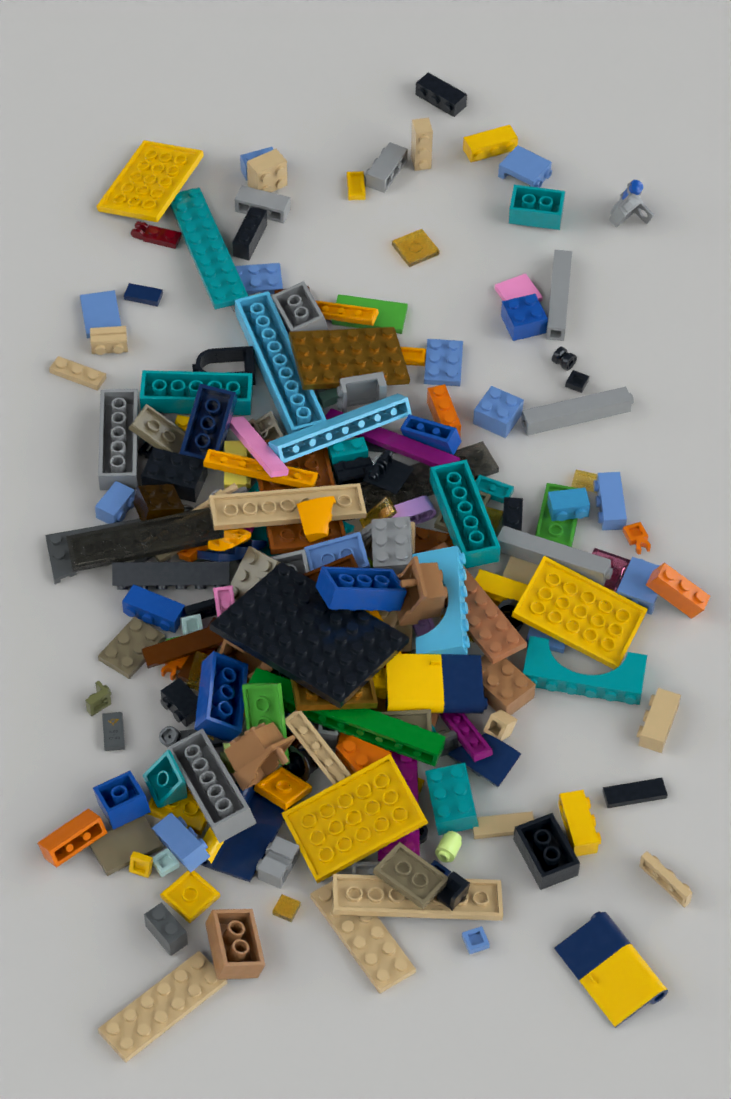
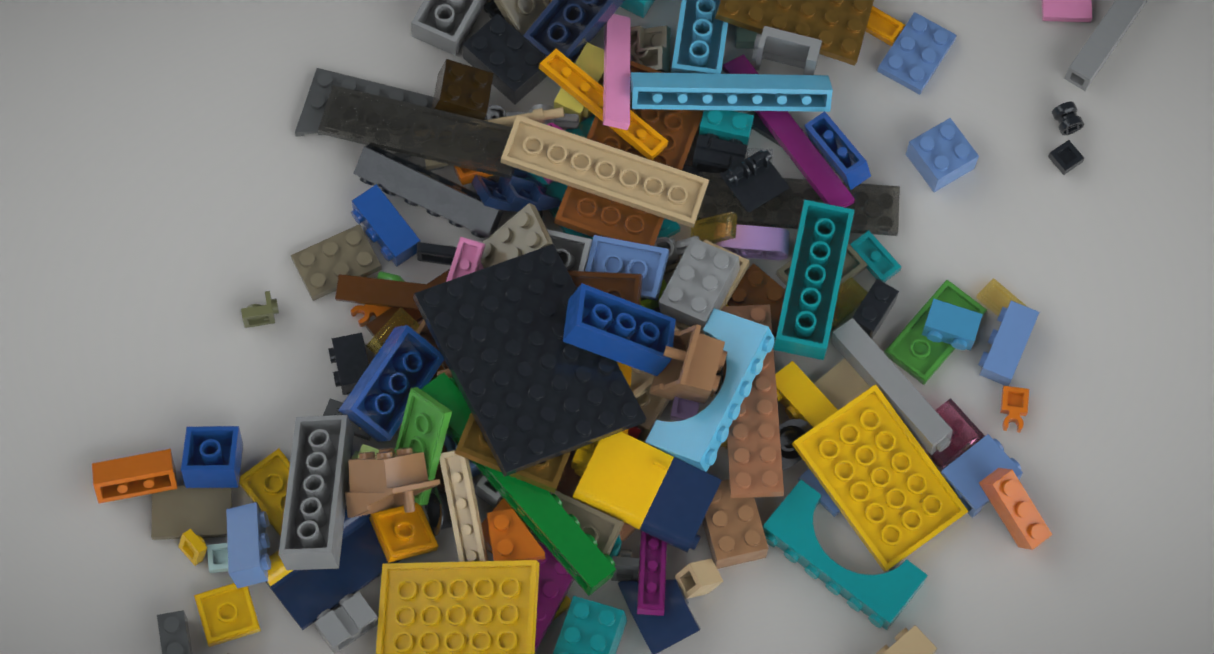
camera: 25 degrees right, 15 degrees up
(113, 731) = (256, 361): dark grey tile -> none
(115, 503) = (417, 65): medium blue brick -> none
(165, 781) = (272, 457): teal slope -> none
(169, 736) = (314, 400): dark grey tile -> none
(191, 623) = (417, 268): light aqua plate -> none
(231, 538) = (517, 184): light orange slope -> none
(315, 517) = (627, 202): light orange slope -> none
(442, 407) = (874, 123): orange brick -> none
(524, 317) = (1050, 37): blue brick -> none
(576, 410) = (1041, 198): light grey brick -> none

